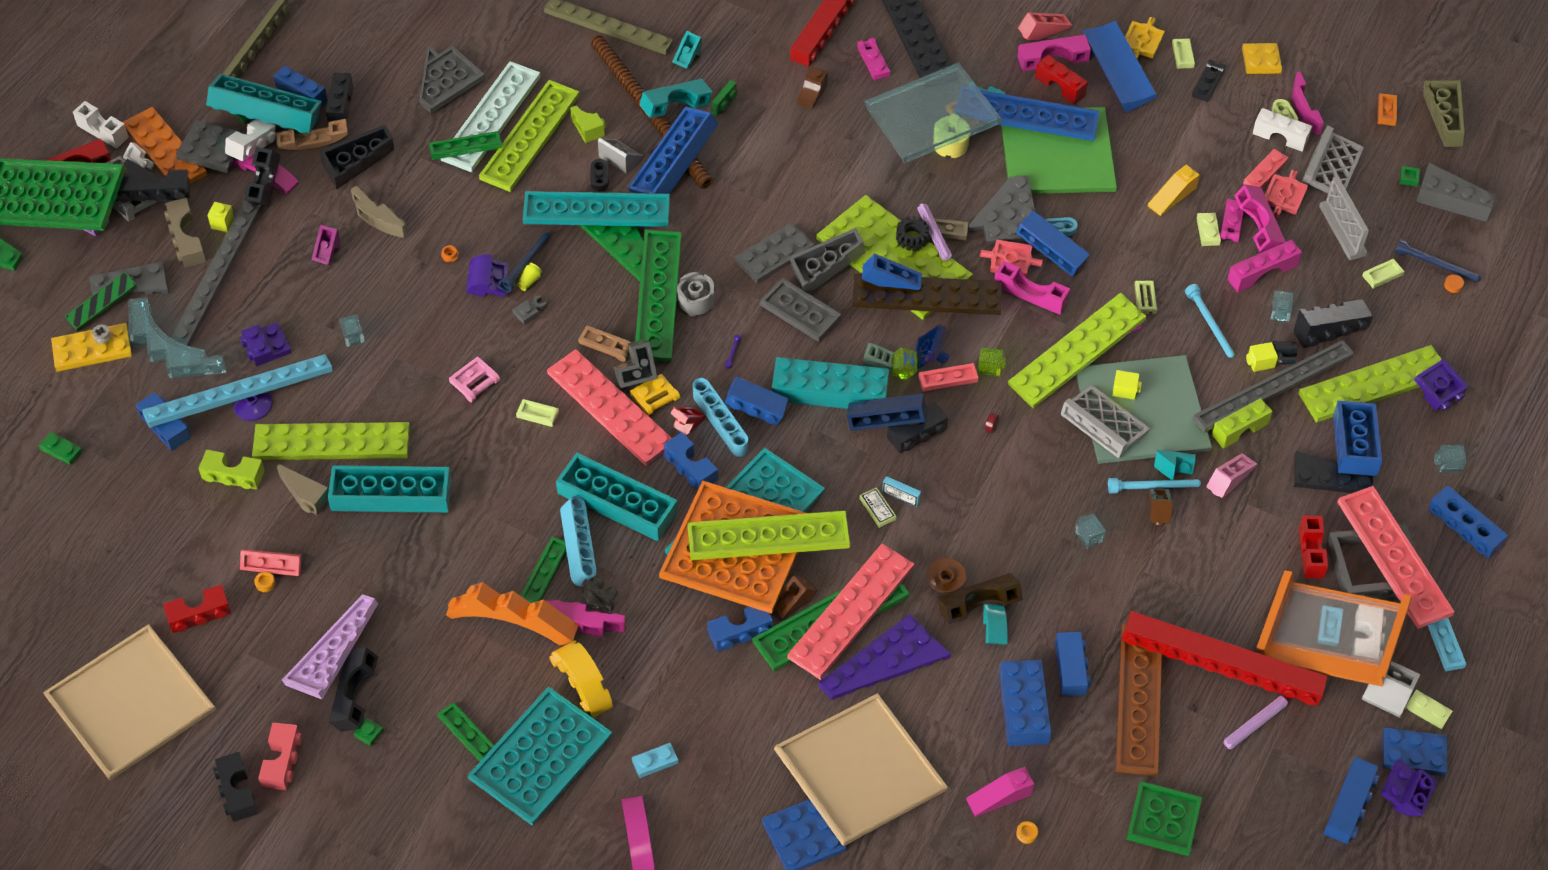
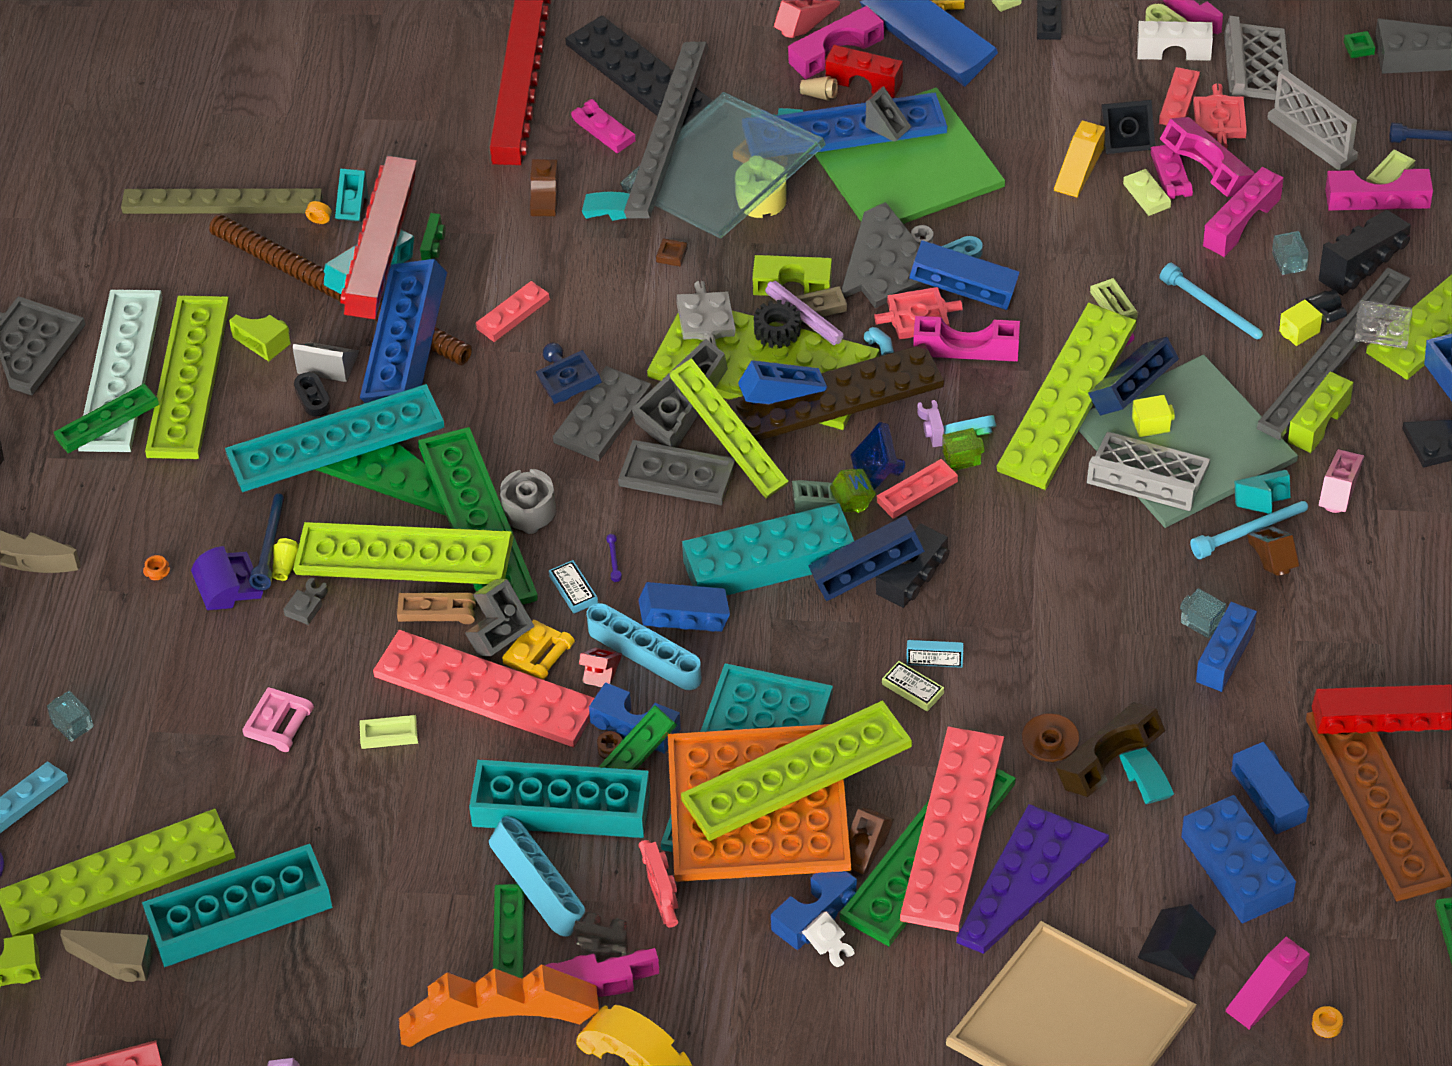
camera: 20 degrees left, 5 degrees down
(601, 300) = (403, 553): none -> lime plate
(650, 573) = (660, 883): none -> coral plate
(663, 54) = (318, 212): none -> light orange tile
(667, 468) = (608, 737): none -> reddish brown bush
(683, 479) = (640, 741): none -> green tile
(686, 86) = (378, 238): none -> brick
(697, 361) = (573, 586): none -> tile
(735, 649) = (825, 937): none -> white plate
(752, 164) = (512, 311): none -> coral plate
(763, 219) = (567, 375): none -> dark blue plate
(843, 293) = (728, 428): none -> lime plate
(851, 114) = (605, 203): none -> teal slope
(870, 211) = (705, 314): none -> light grey plate
(873, 160) = (671, 252): none -> reddish brown tile
(909, 75) = (666, 130): none -> dark grey plate
(955, 207) = (811, 272): none -> lime arch
(959, 741) = (1178, 941): none -> black slope
(978, 267) = (878, 336): none -> medium azure arm
(980, 338) = (933, 426): none -> lavender plate
(992, 422) = (1004, 524): dark red tile -> none
(1012, 350) = (980, 425): none -> medium azure plate
(1028, 81) = (821, 87): none -> tan cone
(1042, 202) = (922, 230): none -> light grey bush
(1054, 116) = (885, 116): none -> dark grey slope
(1092, 559) = (1226, 646): none -> blue brick
(1127, 353) = (1133, 376): none -> dark blue brick
(1217, 179) = (1128, 126): none -> black slope
(1315, 378) = (1382, 324): none -> clear bracket
(1346, 279) = (1350, 192): none -> dark pink arch

